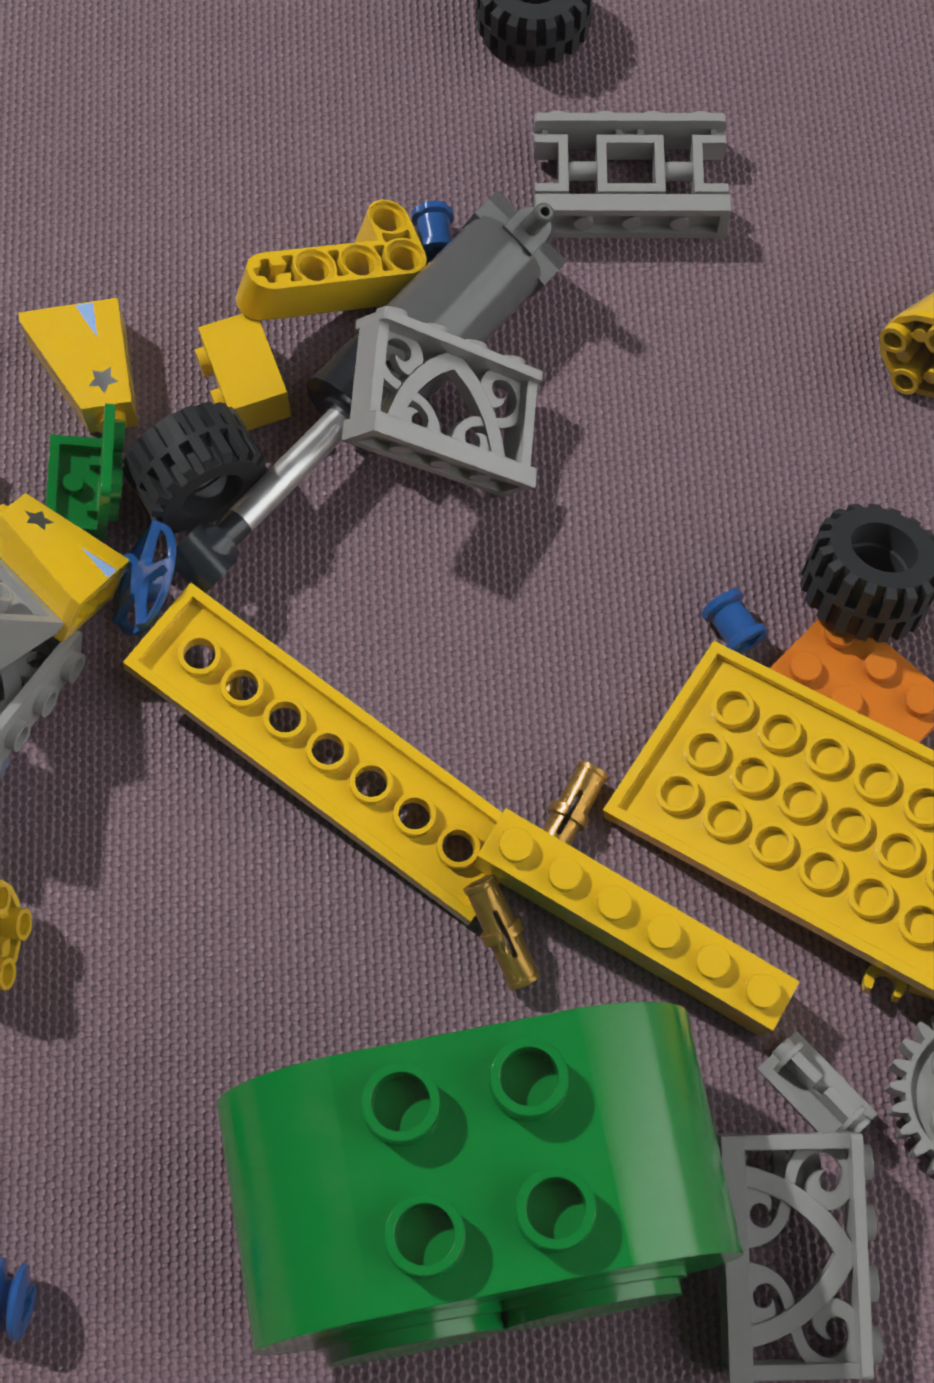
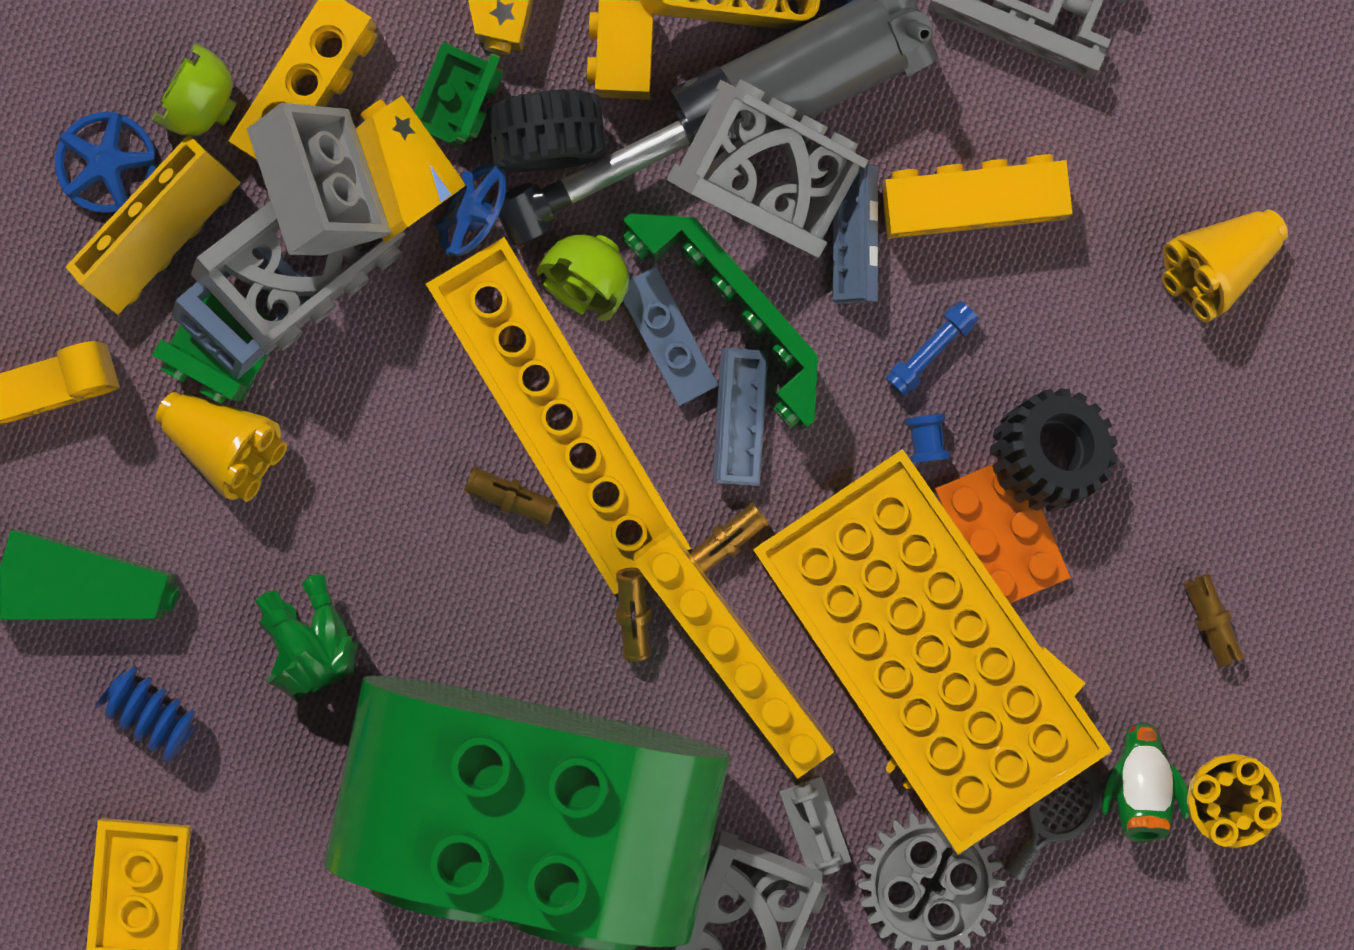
camera: 20 degrees right, 20 degrees up
(143, 1129) = (307, 655): none -> green piece
(295, 600) = (586, 274): none -> lime cylinder
(308, 865) = (510, 496): none -> pearl gold pin
(410, 634) = (668, 337): none -> sand blue plate
(458, 542) = (659, 233): none -> green slope
(525, 681) = (740, 416): none -> sand blue plate
(567, 462) = (857, 241): none -> sand blue plate
(668, 372) = (976, 198): none -> yellow brick
(680, 572) = (958, 320): none -> blue bar

